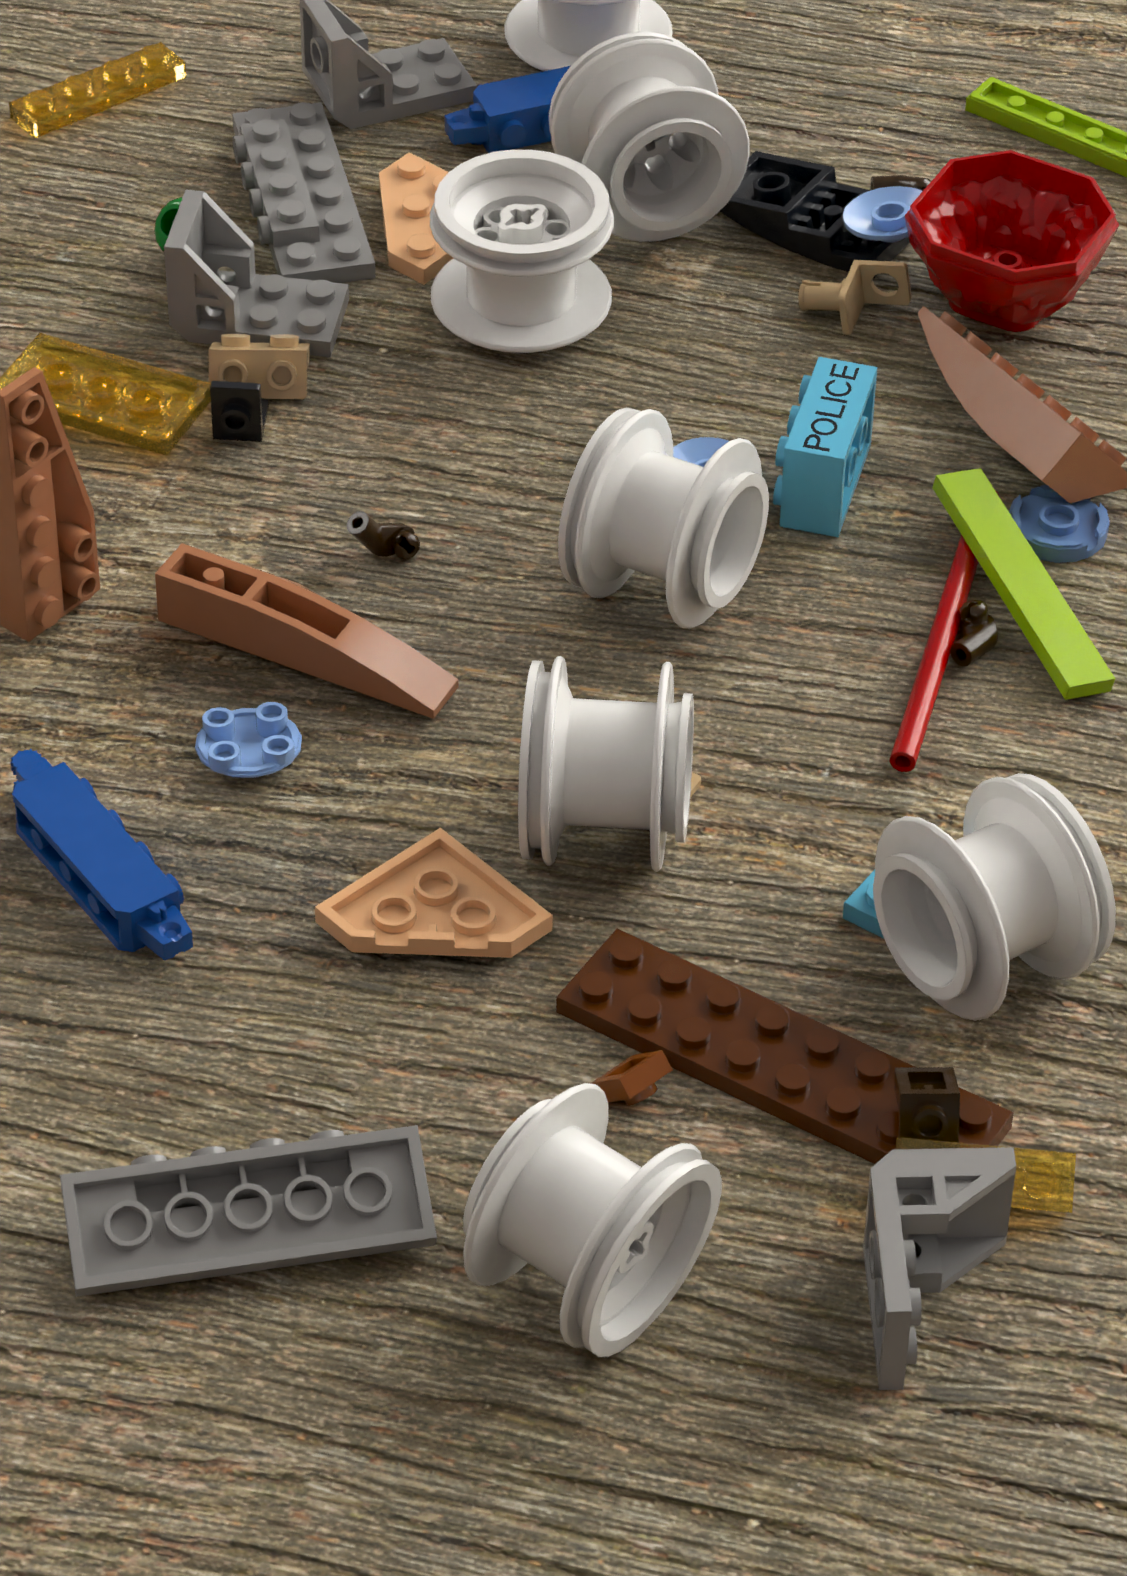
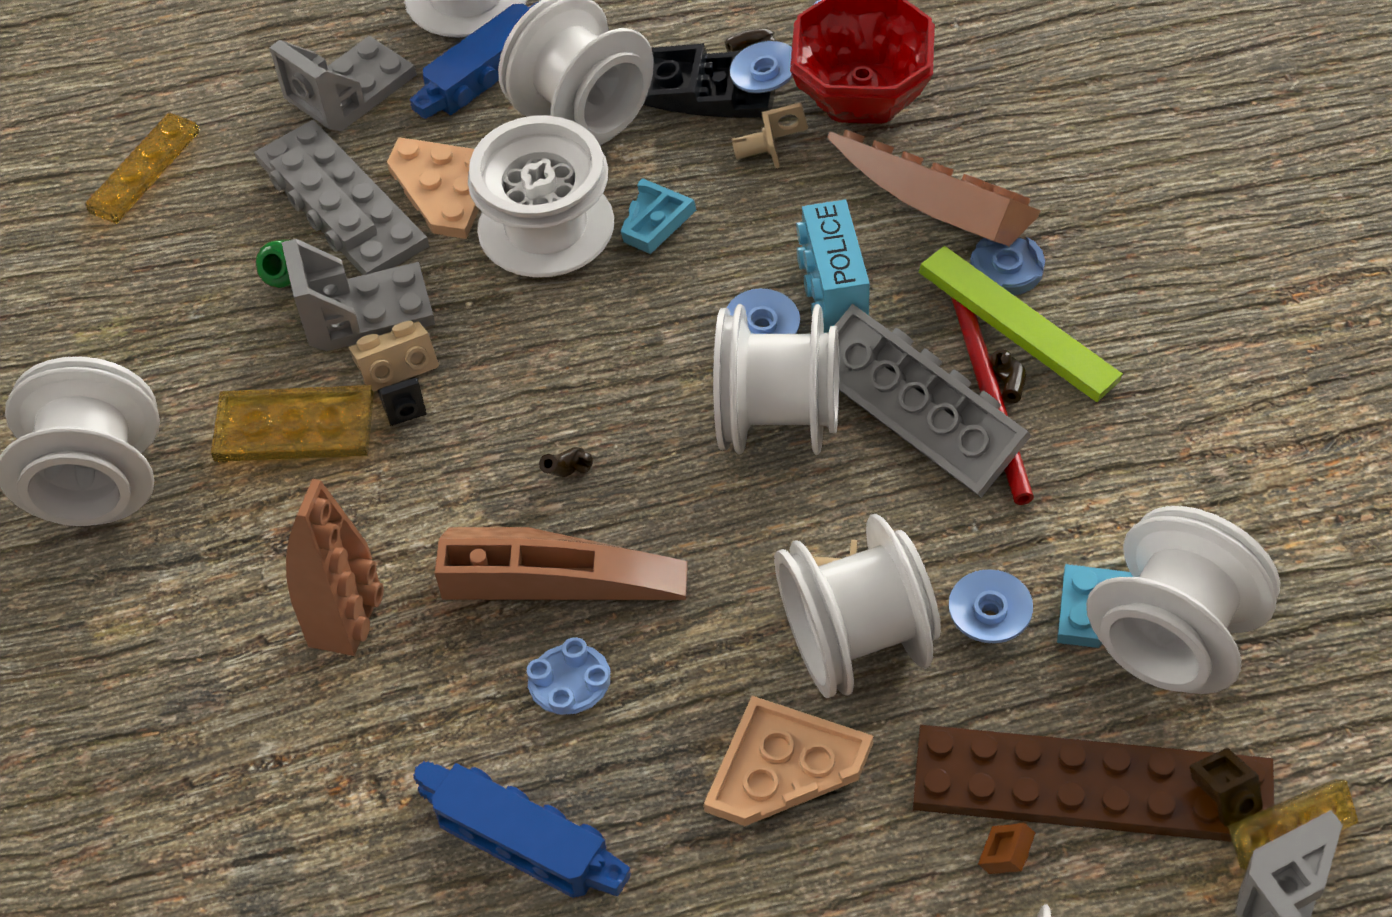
camera: 20 degrees left, 10 degrees up
(657, 332) = (655, 216): none -> medium azure wing
(780, 845) = (990, 592): none -> light blue dish
(843, 616) = (925, 403): none -> light grey plate

